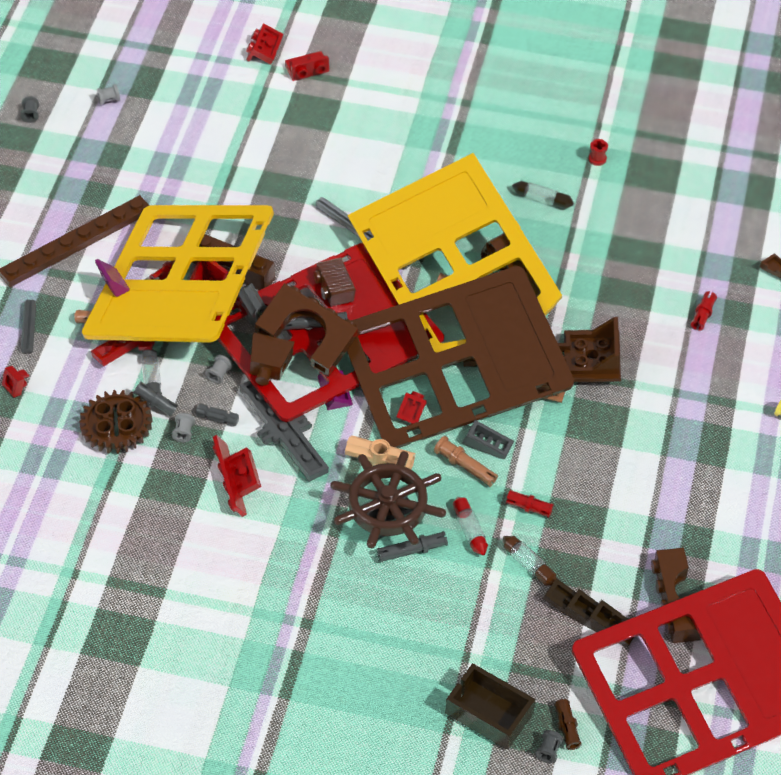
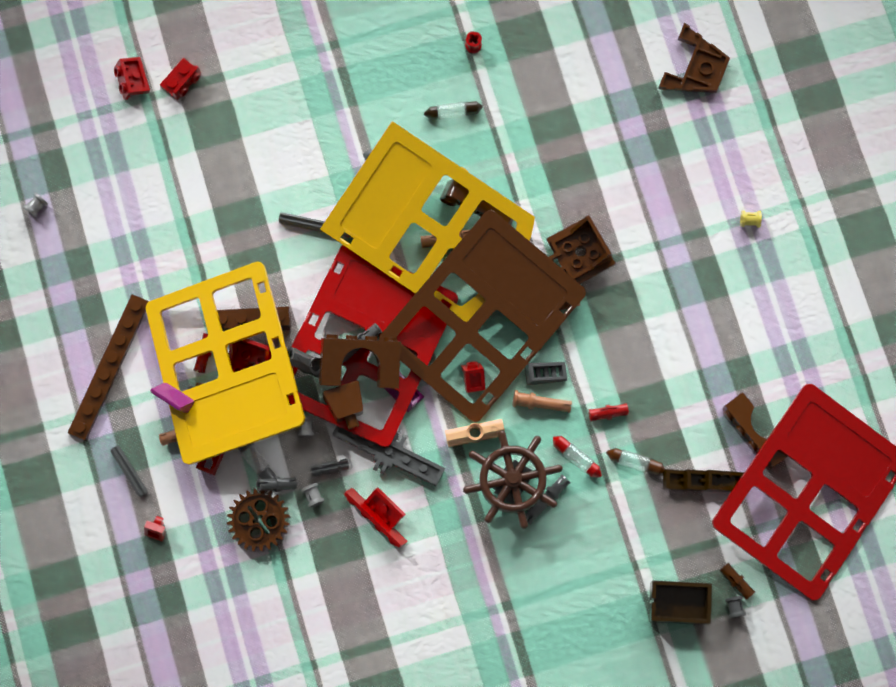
camera: 30 degrees left, 25 degrees up
(334, 282) = (349, 299): reddish brown brick -> none
(703, 310) = (639, 157): red pin -> none

